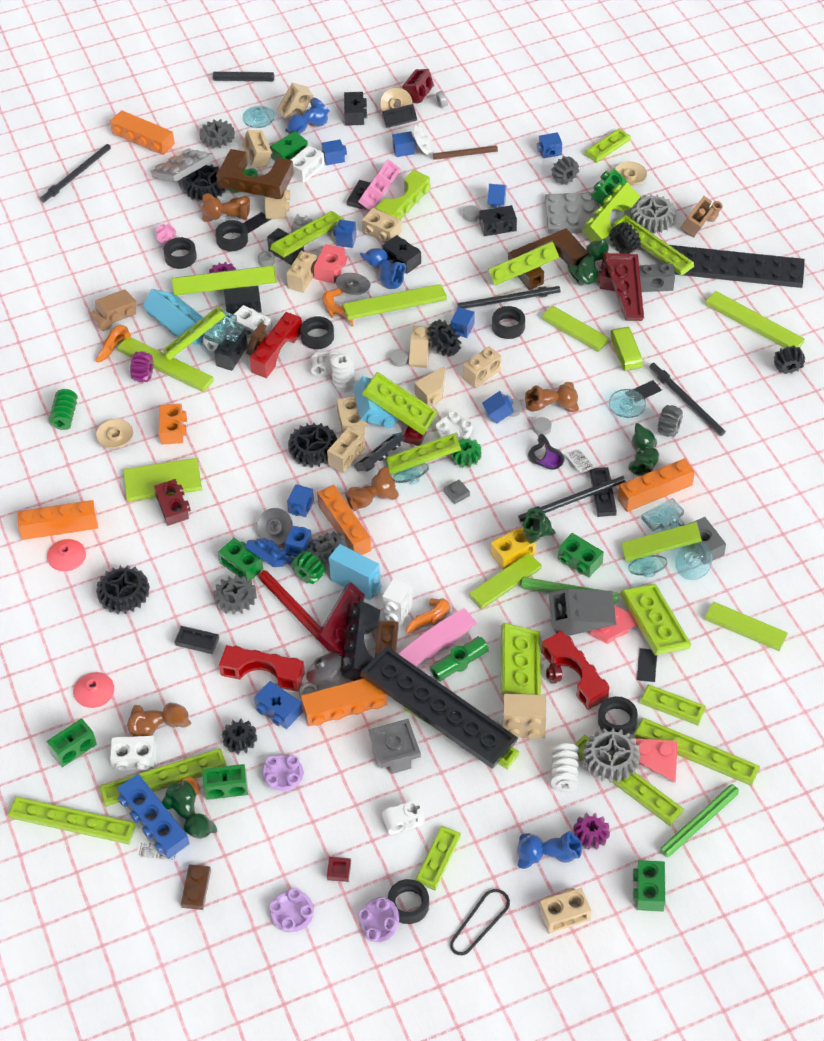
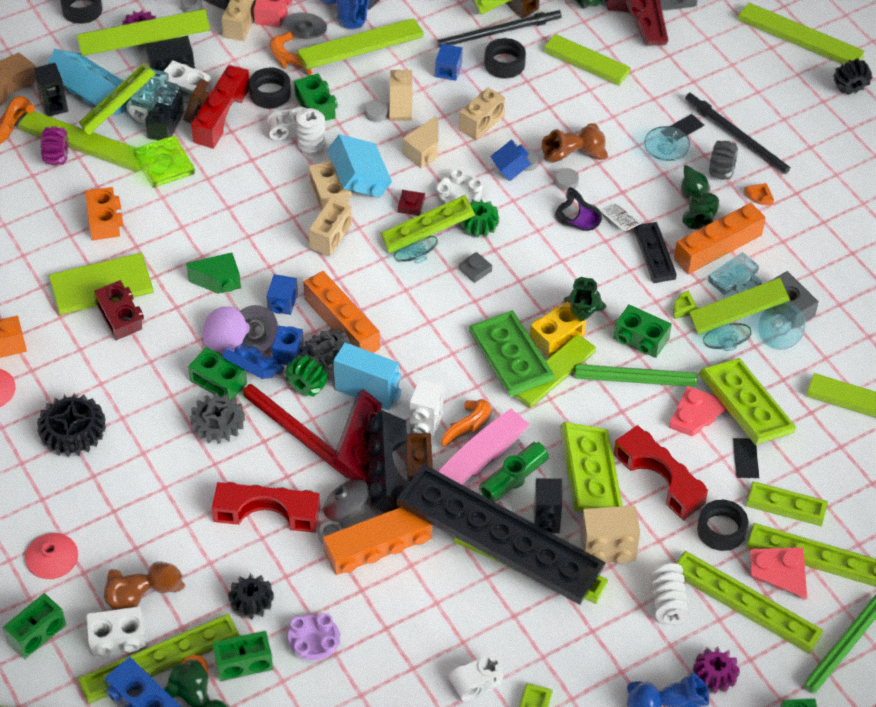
camera: 10 degrees left, 0 degrees up
(114, 433) = (31, 231): tan dish -> none
(145, 321) = (51, 89): none -> black brick
(196, 639) = (176, 479): black plate -> none
(225, 386) = (164, 161): none -> clear neon green plate
(251, 479) = (215, 273): none -> green slope
(251, 524) = (224, 329): none -> lavender dish
(277, 705) = (294, 552): blue brick -> none
(315, 444) = (285, 224): black gear -> none
(351, 342) = (315, 94): none -> green brick
(380, 452) = (372, 227): black plate -> none
(381, 486) = (381, 268): dark orange animal -> none
(394, 745) = (452, 588): flat silver panel -> none
(399, 403) = (389, 164): lime tile -> none
(444, 338) = (430, 82): black gear -> none
(473, 563) = (511, 353): none -> bright green tile
(479, 687) = (548, 504): none -> black brick
(554, 673) = (635, 478): dark red plate -> none
(576, 497) = (624, 261): black bar -> none
(581, 610) = (657, 398): dark grey slope -> none
(618, 537) = (683, 305): none -> lime tile
(624, 752) = (713, 579): light grey gear -> none
(626, 348) = (654, 78): lime beam -> none
(696, 451) = (759, 194): none -> orange tile

